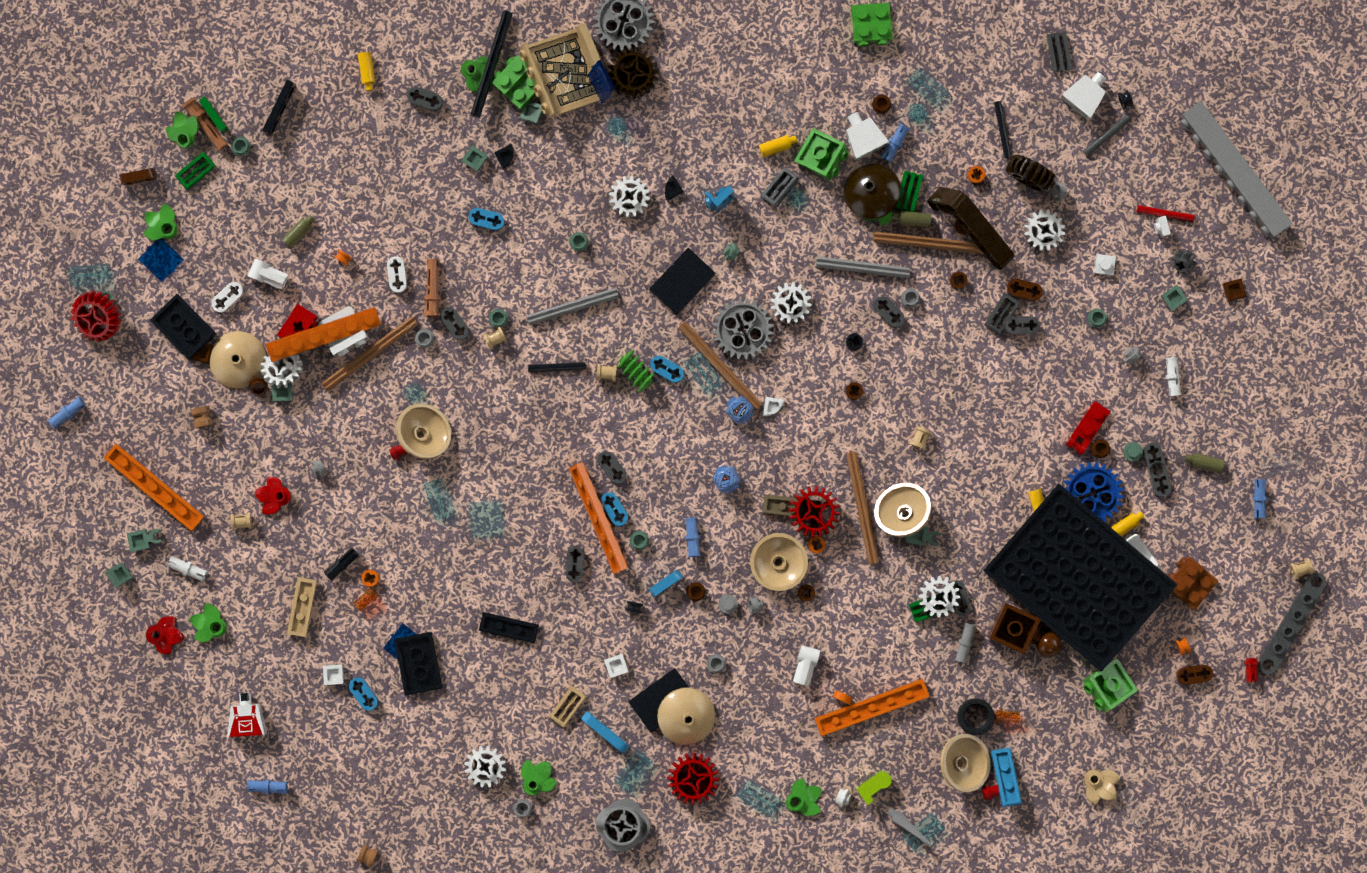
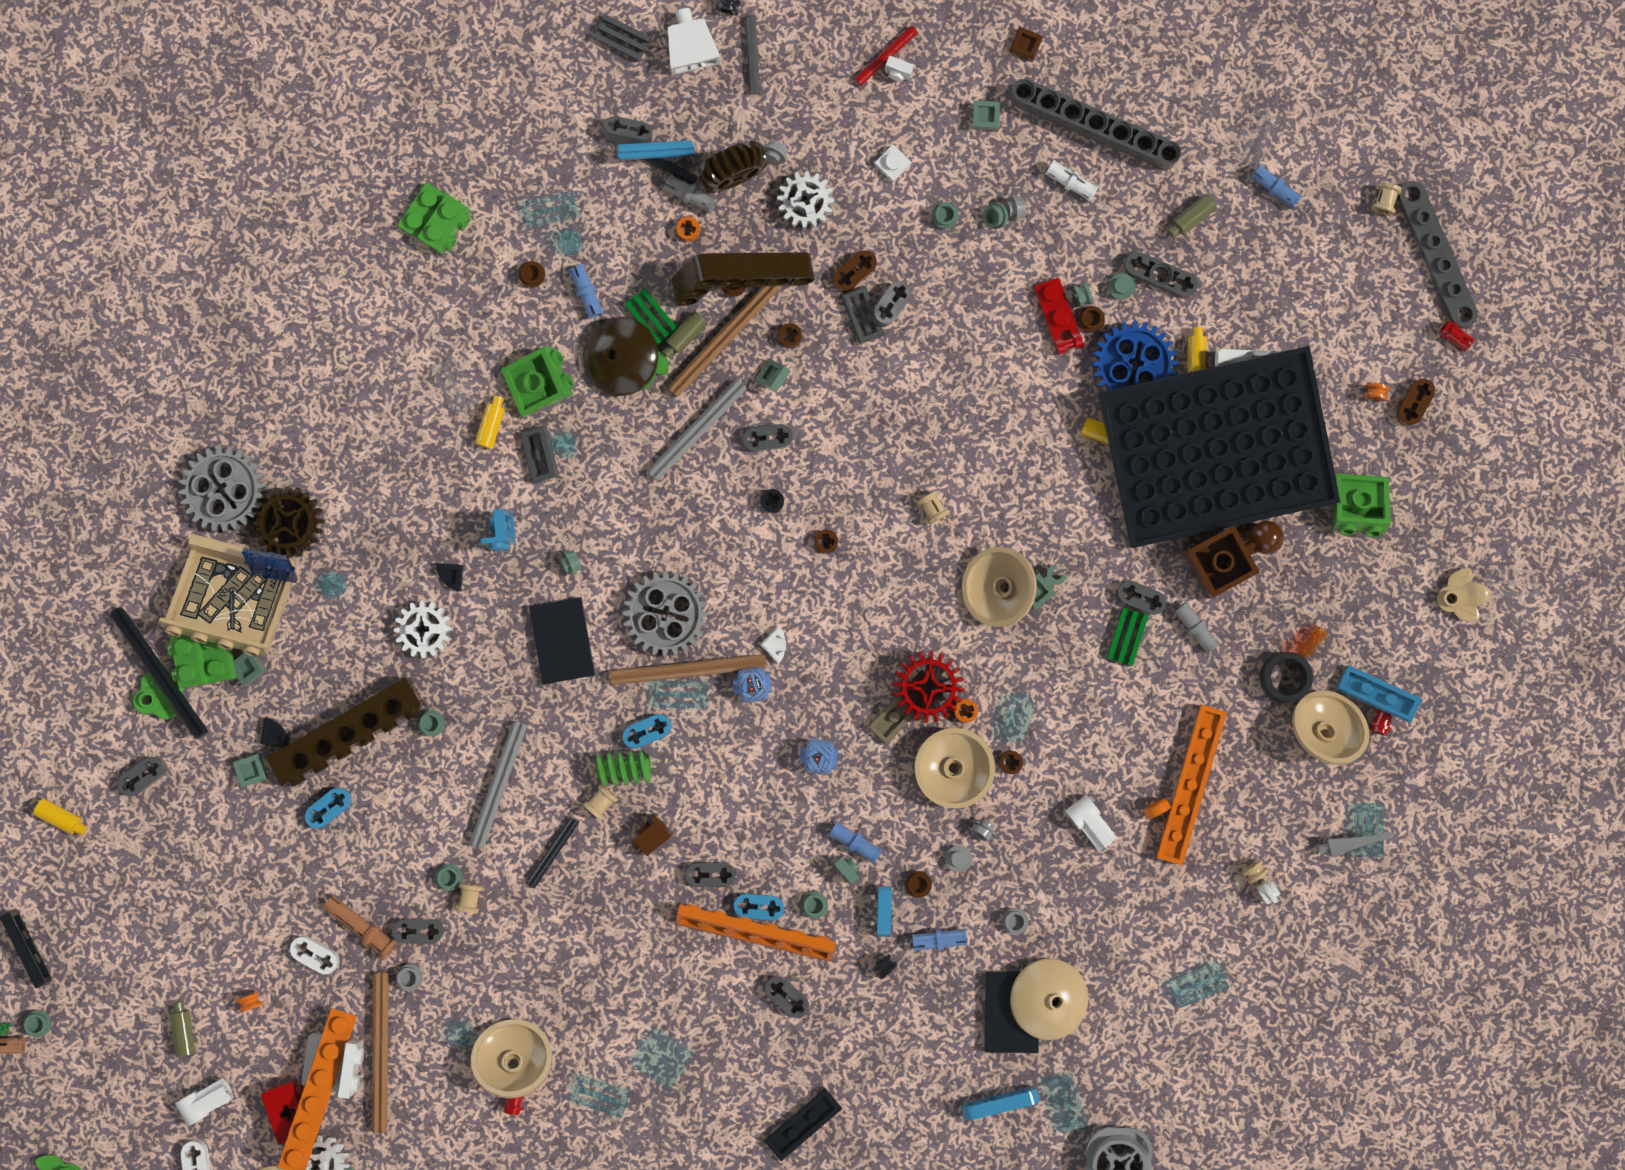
camera: 55 degrees left, 0 degrees up
(195, 171) = (36, 1095): green tile -> none
(495, 173) = (284, 761): none -> dark brown brick
(558, 719) = (933, 1101): tan tile -> none
(608, 416) = (651, 836): none -> reddish brown brick
(616, 665) = (935, 1035): white plate -> none
(673, 627) = (939, 939): none -> medium blue pin
(675, 544) = (848, 869): none -> sand green plate
(698, 795) = (1121, 1055): red gear -> none
(782, 302) = (685, 529): white gear -> none
(806, 795) = (1237, 931): bright green plate -> none
(837, 582) = (1011, 716): none -> clear light blue beam
(848, 781) = (1255, 871): none -> tan bush
(862, 507) = (963, 629): medium nougat axle -> none
(864, 136) = (553, 320): white torso -> none
(878, 781) = (1279, 847): lime leg -> none
(910, 298) = (770, 403): light grey plate -> none
(927, 287) = (772, 375): none -> sand green plate
(945, 590) = (1126, 631): white gear -> none
(997, 160) = (690, 194): none -> light grey pin
(1006, 97) = (627, 131): none -> dark grey beam
(1007, 121) = (655, 150): none -> dark azure axle
(1110, 432) = (1082, 294): none -> sand green bush
(1119, 347) = (995, 215): none -> sand green plate
(1184, 261) = (954, 73): dark grey gear -> none
(1192, 582) = (1312, 326): dark orange plate -> none
(1219, 356) = (1108, 123): none -> dark grey beam

